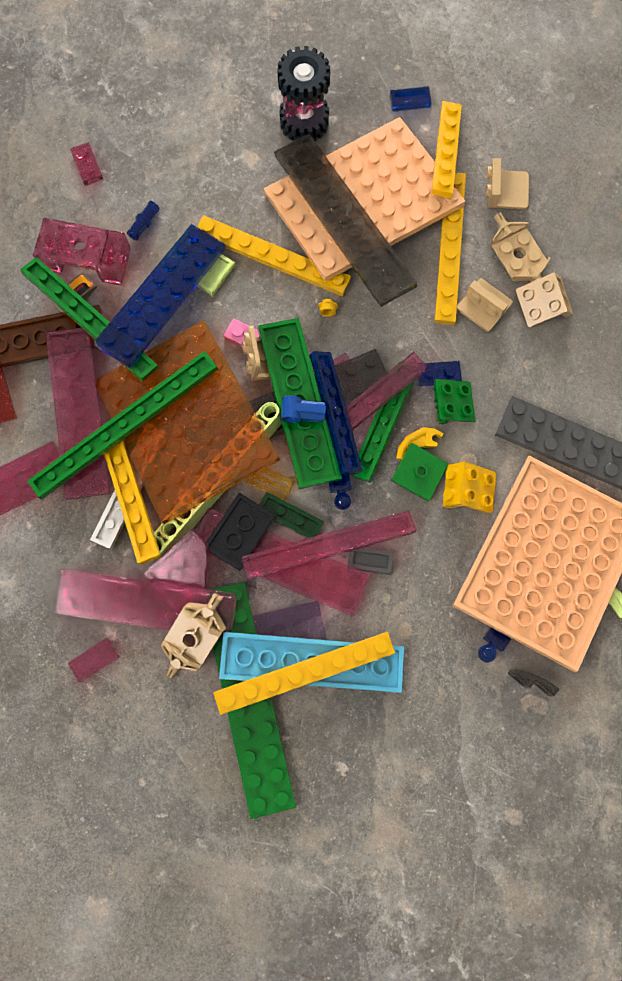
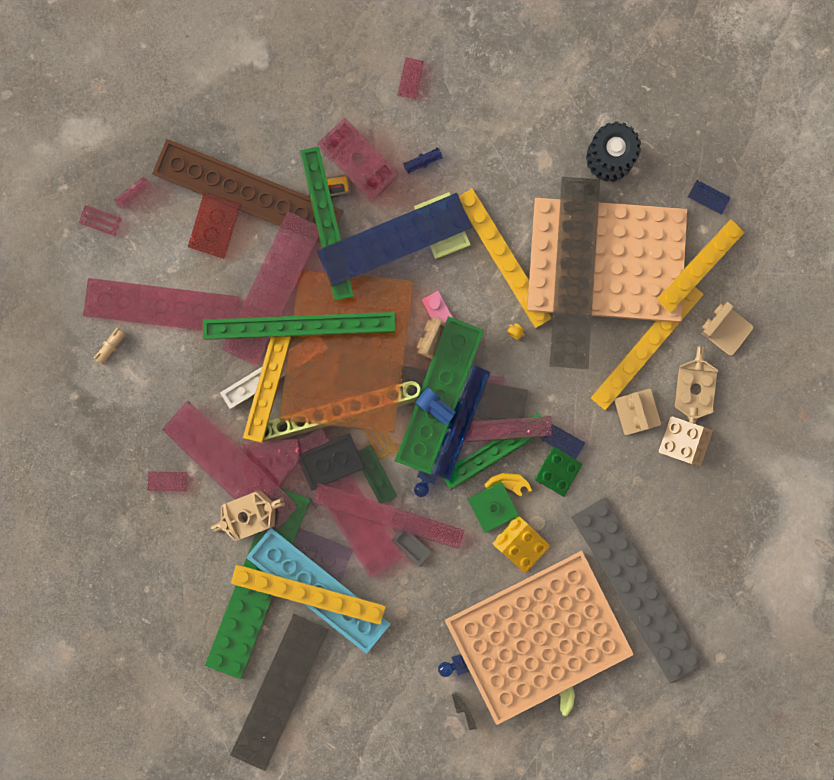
camera: 35 degrees right, 10 degrees up
(344, 795) = (279, 692): none -> clear smoke plate

